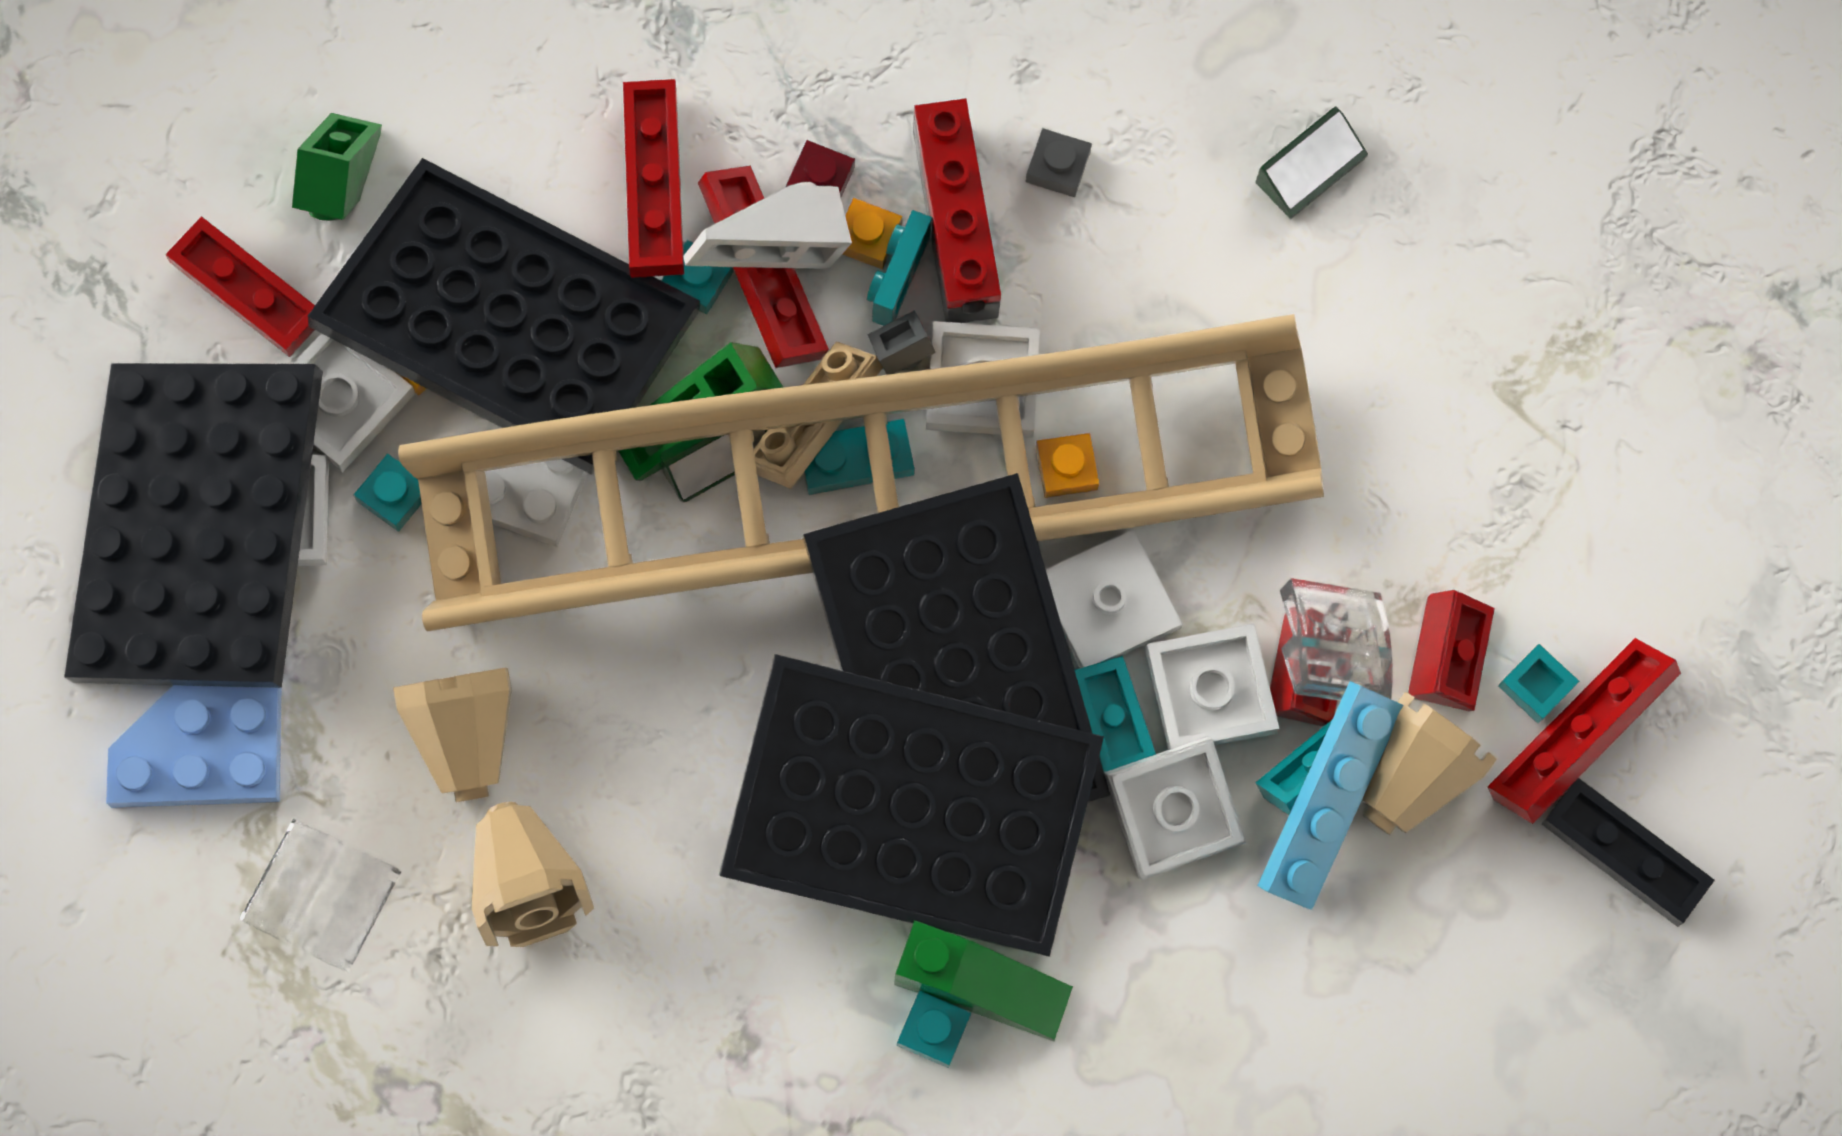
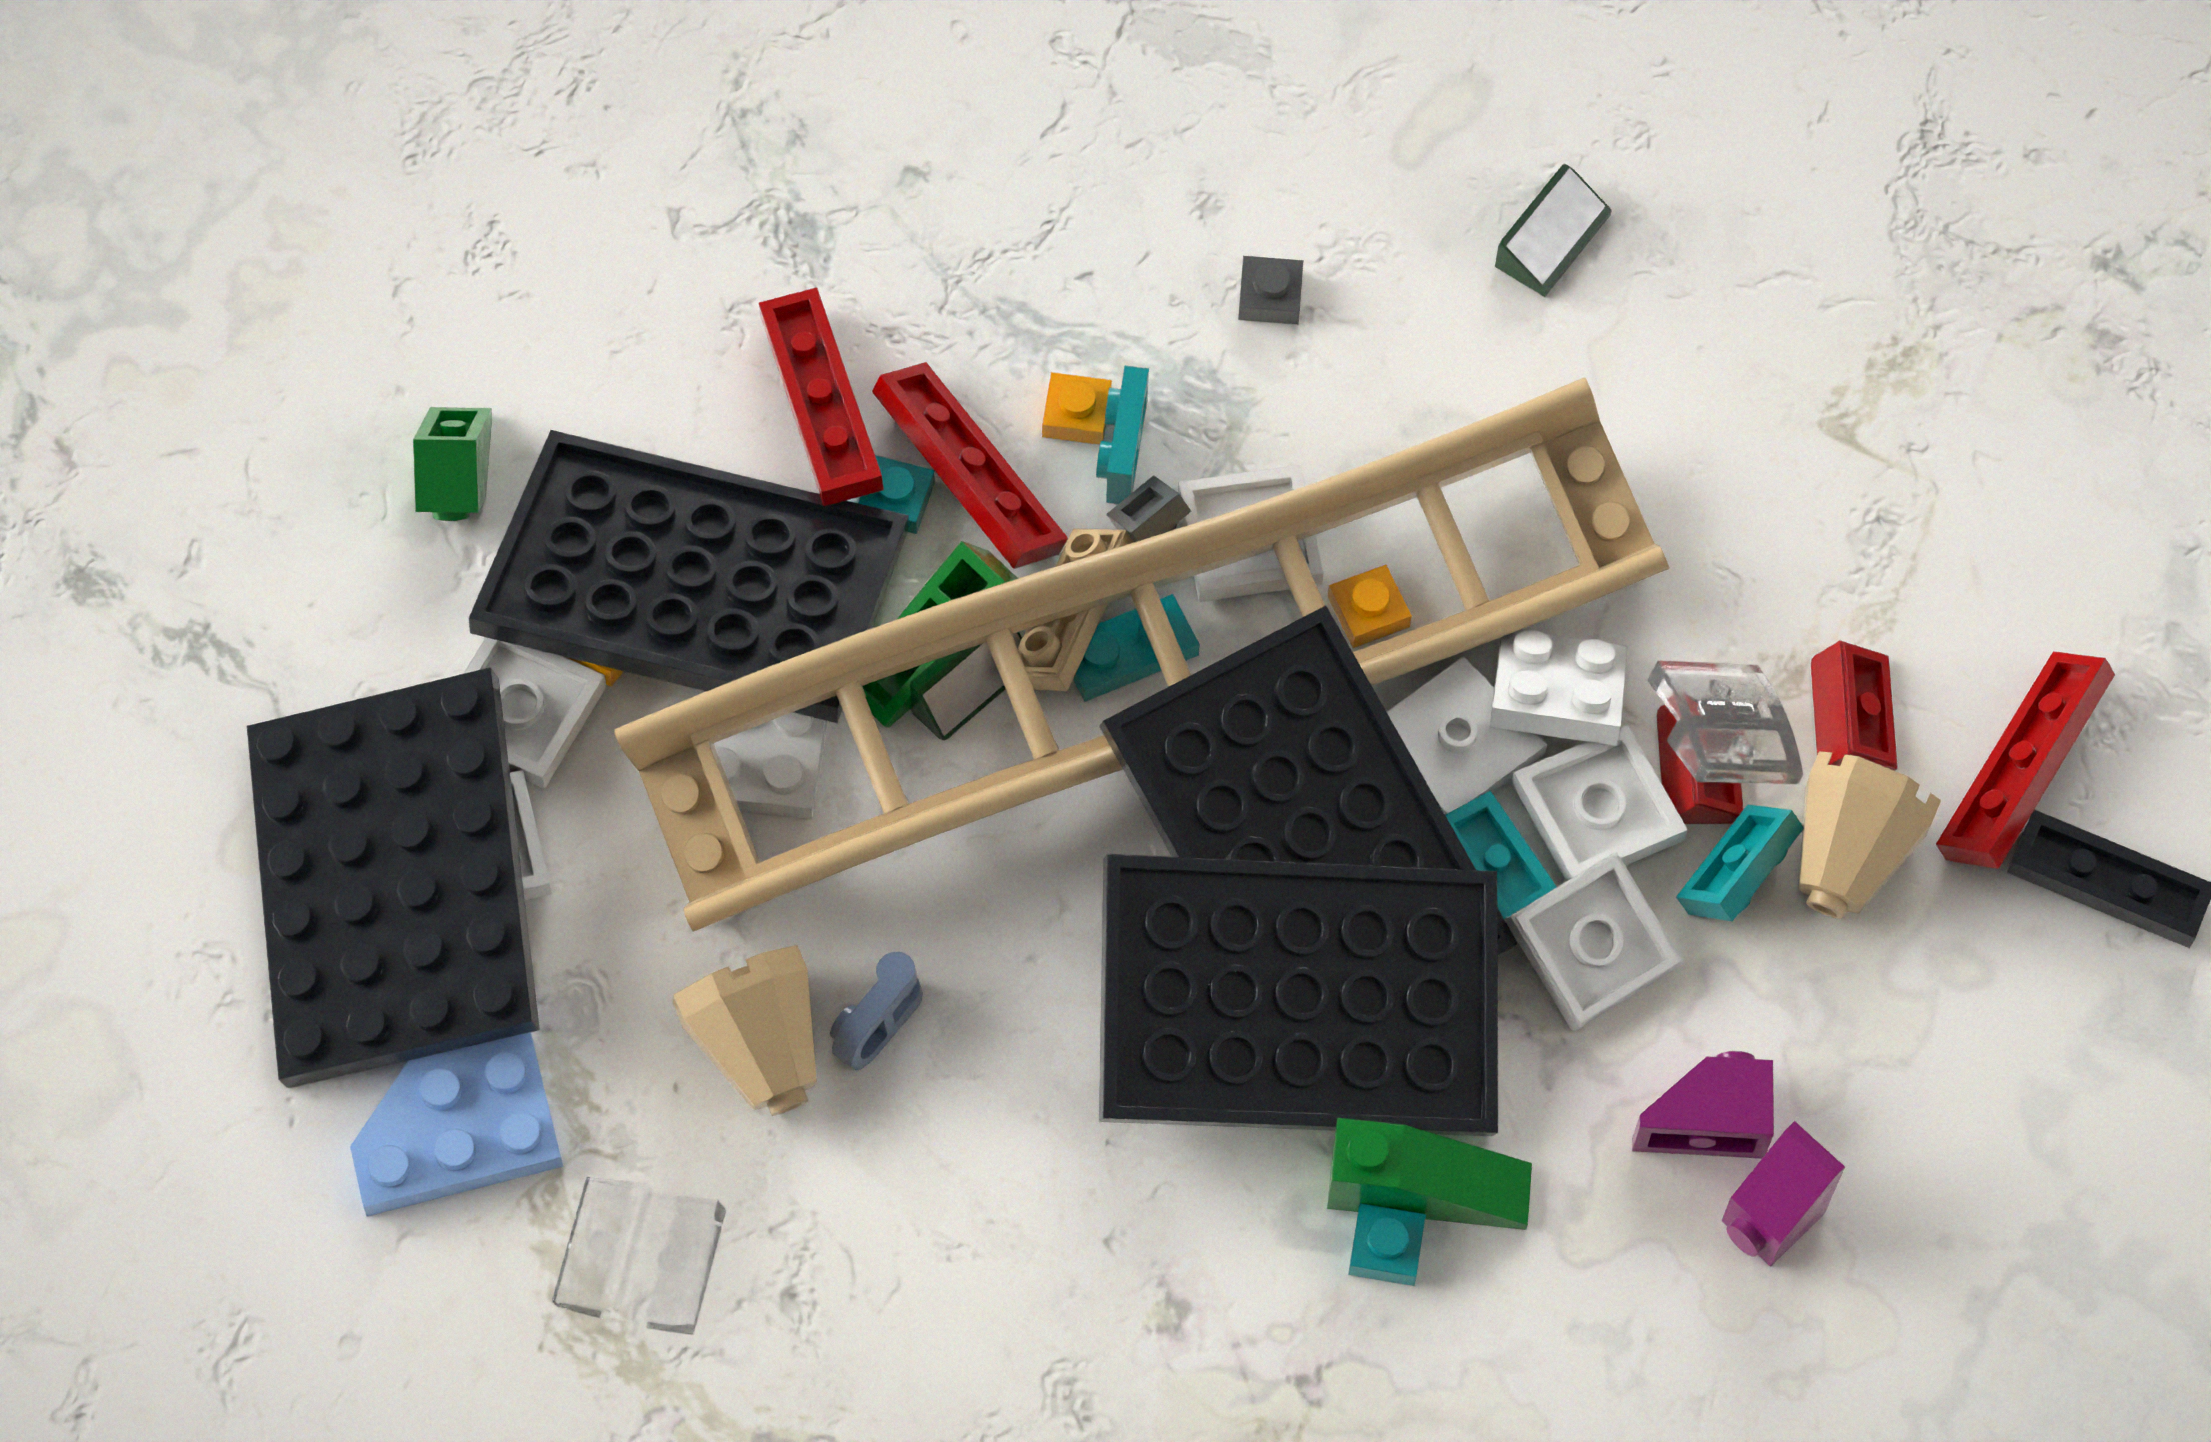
camera: 10 degrees left, 10 degrees down
(243, 285) = (379, 610): red plate -> none
(390, 493) = (607, 799): teal plate -> none
(523, 879) = (878, 1179): tan cone -> none
(553, 743) = (867, 1028): none -> sand blue plate
(785, 230) = (985, 417): white slope -> none
(822, 167) = (1007, 358): dark red plate -> none
(957, 210) = (1183, 374): red piece -> none
(1206, 577) = (1559, 686): none -> white plate
(1235, 978) = (1713, 1110): none -> magenta slope
(1267, 1072) = (1782, 1195): none -> magenta slope
(1330, 796) = (1766, 885): medium azure plate -> none
(1538, 683) = (1960, 722): teal plate -> none

